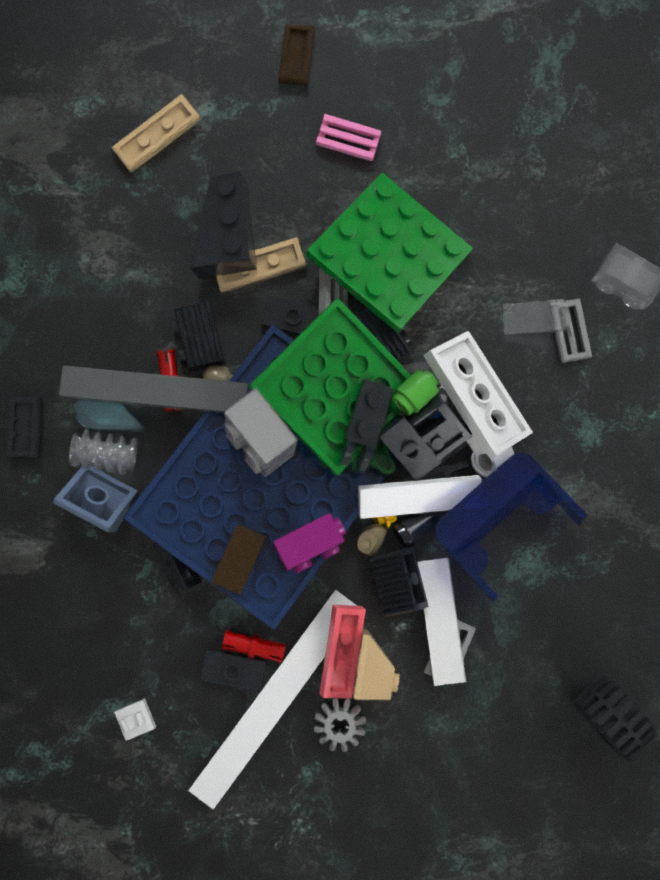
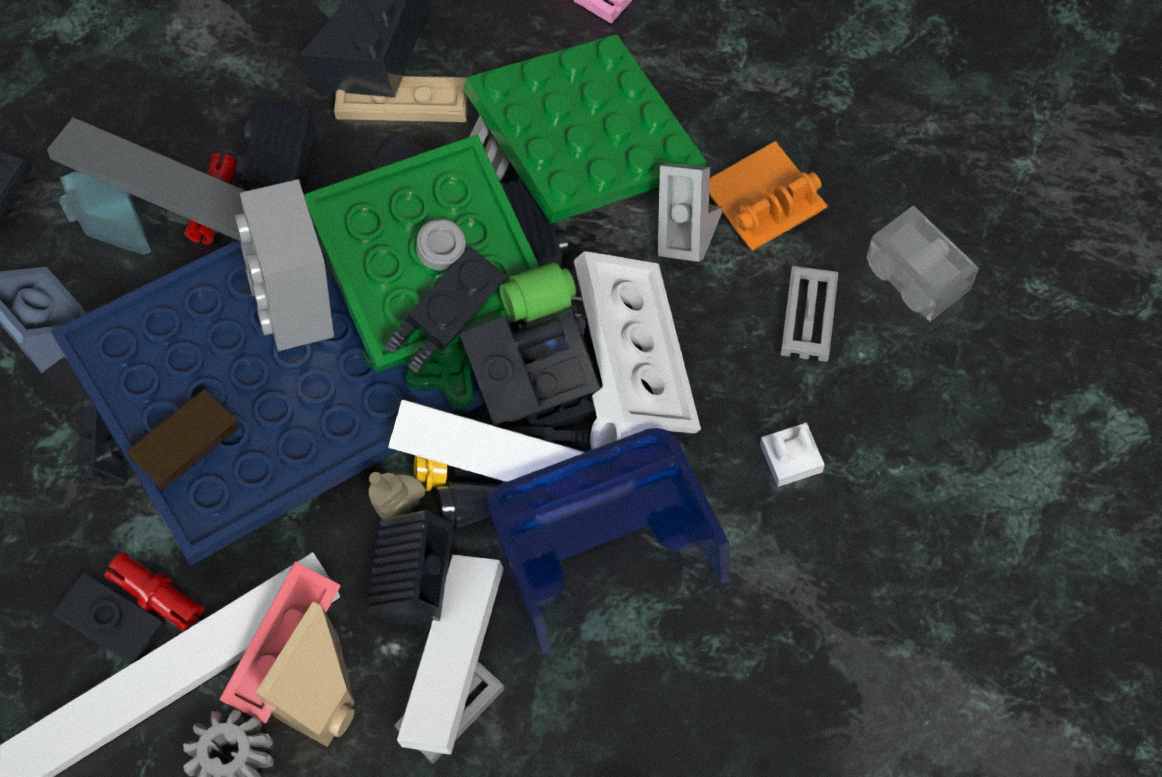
camera: 20 degrees right, 20 degrees down
(102, 454) = (73, 253): clear piece -> none
(310, 541) = (295, 449): magenta brick -> none
(345, 383) = (440, 244): none -> light grey tile
(476, 293) = (685, 212): none -> light grey slope
(516, 258) = (765, 195): none -> orange hinge
(534, 317) = (761, 274): clear plate -> none
(590, 428) = (792, 454): none -> white tile

